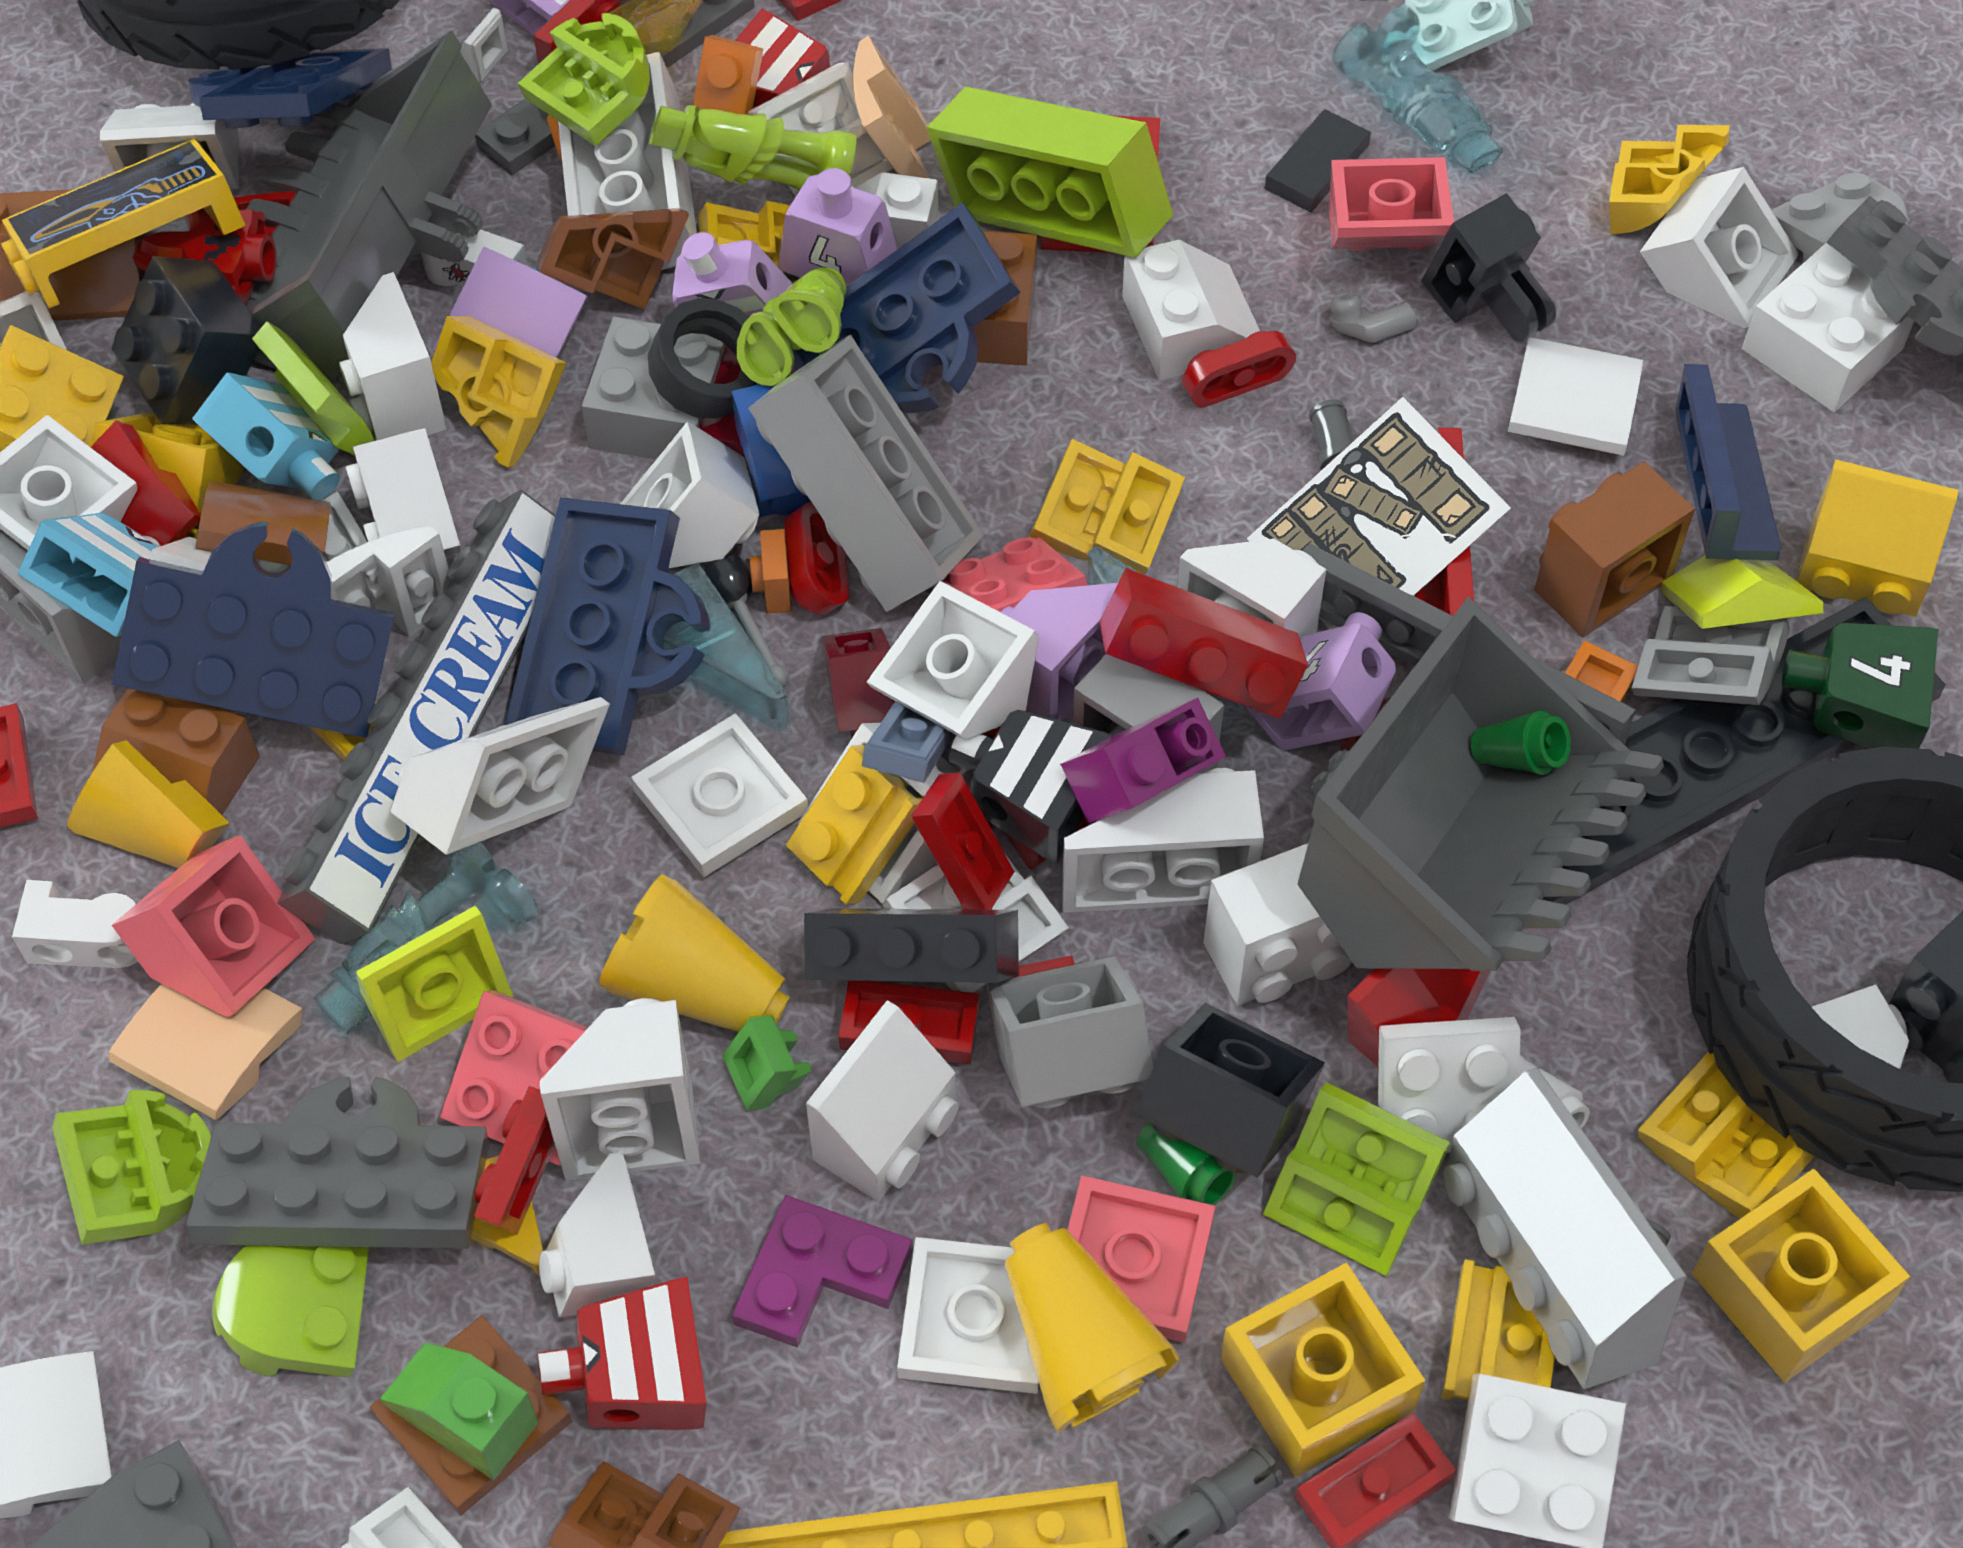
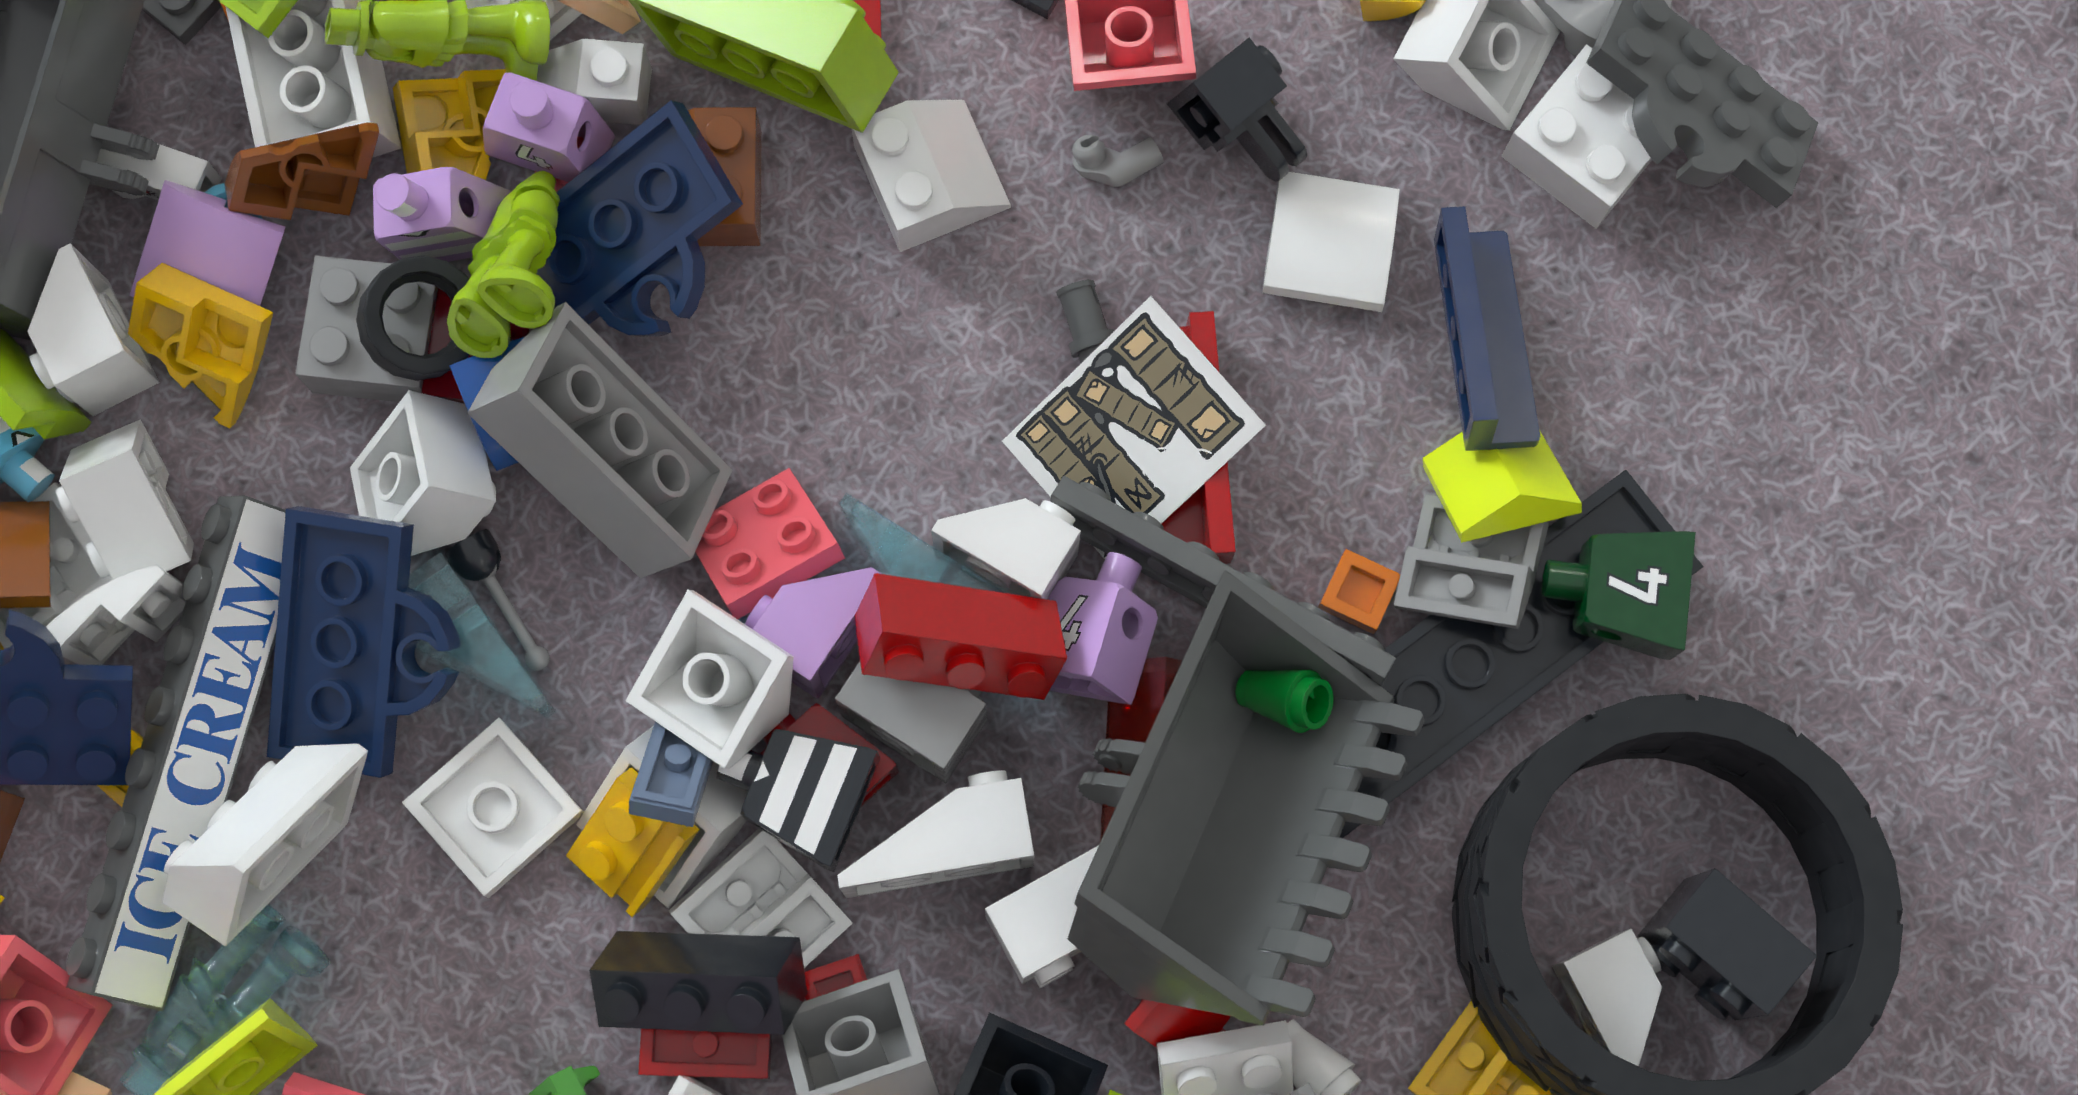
camera: 10 degrees left, 20 degrees up
(691, 957) = (489, 1015): yellow cone -> none
(770, 571) = (518, 541): orange plate -> none
(814, 562) = (561, 541): red plate -> none
(849, 664) = (614, 654): dark red slope -> none
(962, 842) = (738, 871): red plate -> none
(1107, 506) = (856, 423): yellow slope -> none
(1143, 761) = (908, 789): magenta slope -> none
(1238, 368) = (1000, 229): red plate -> none
(1612, 547) = (1371, 446): dark orange brick -> none
(1876, 538) = (1634, 411): yellow slope -> none

